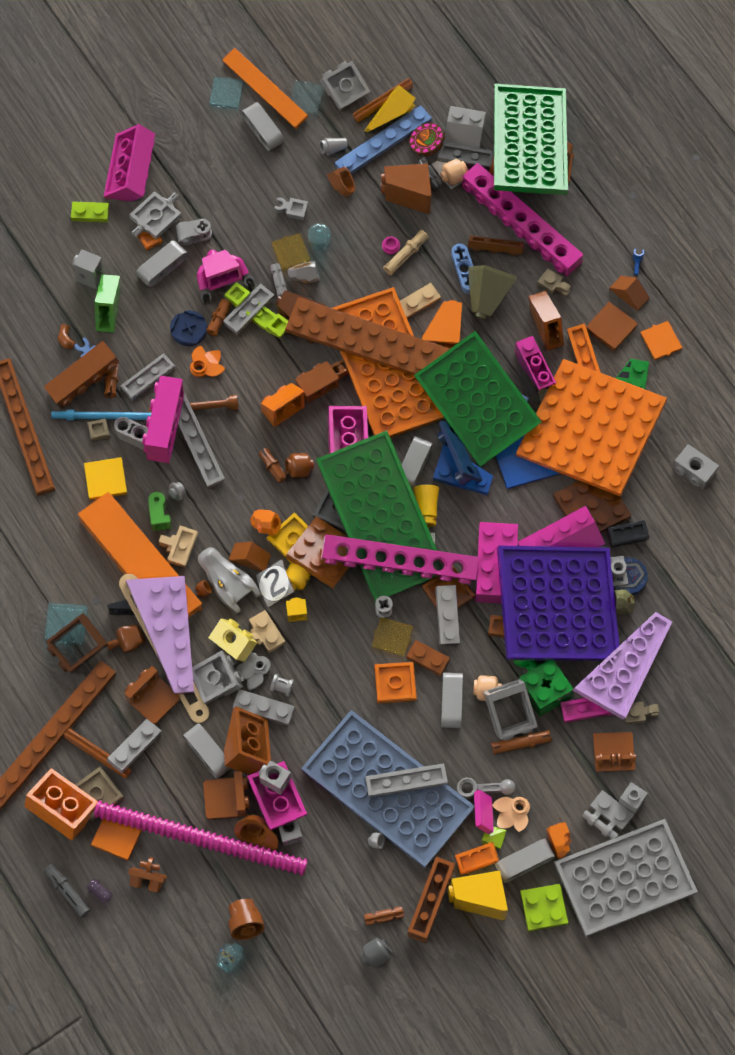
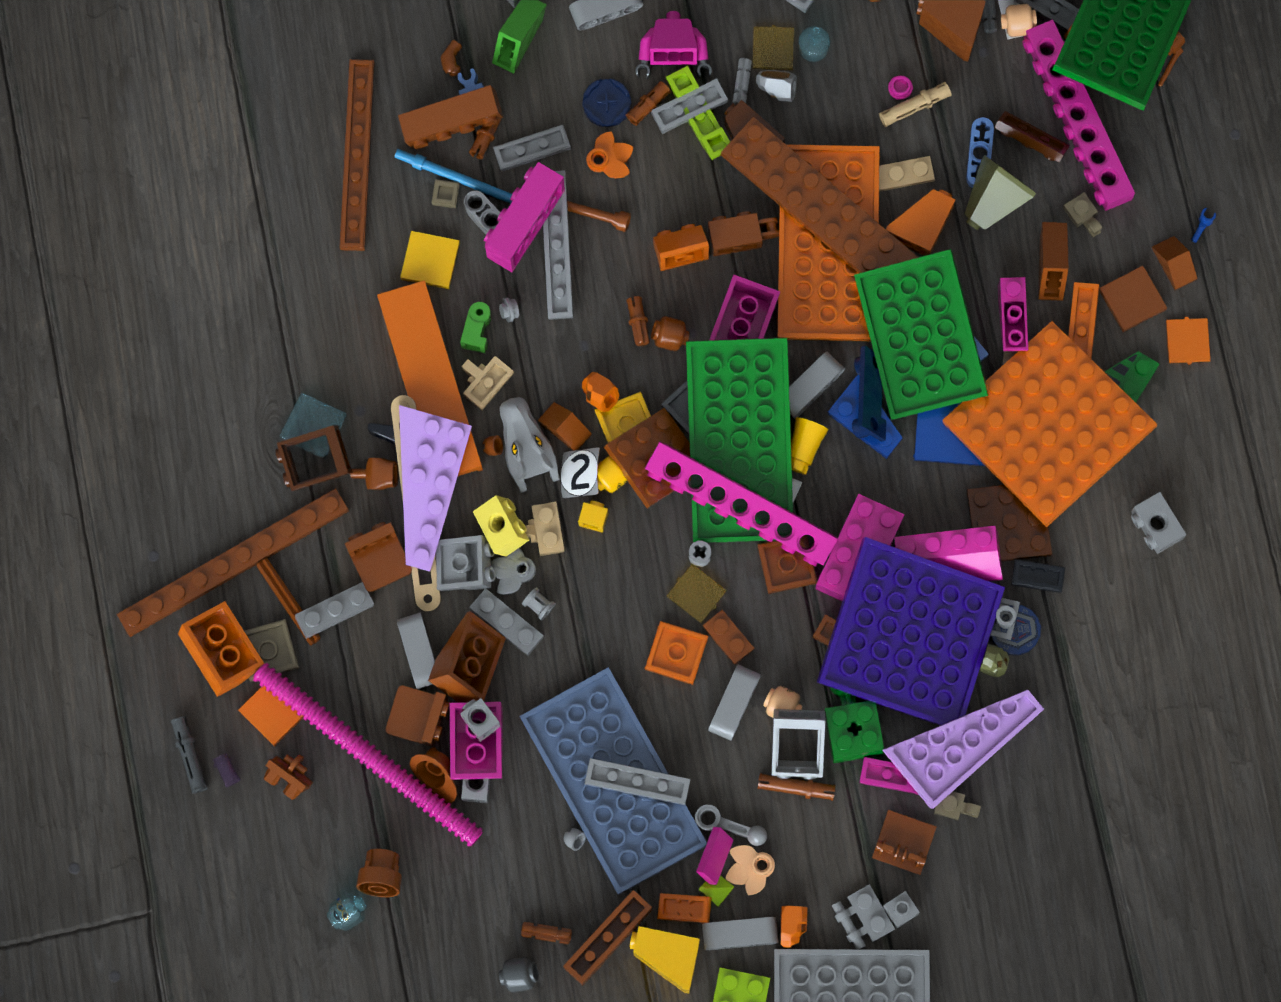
camera: 25 degrees right, 10 degrees up
(447, 615) = (772, 594): light grey plate -> none

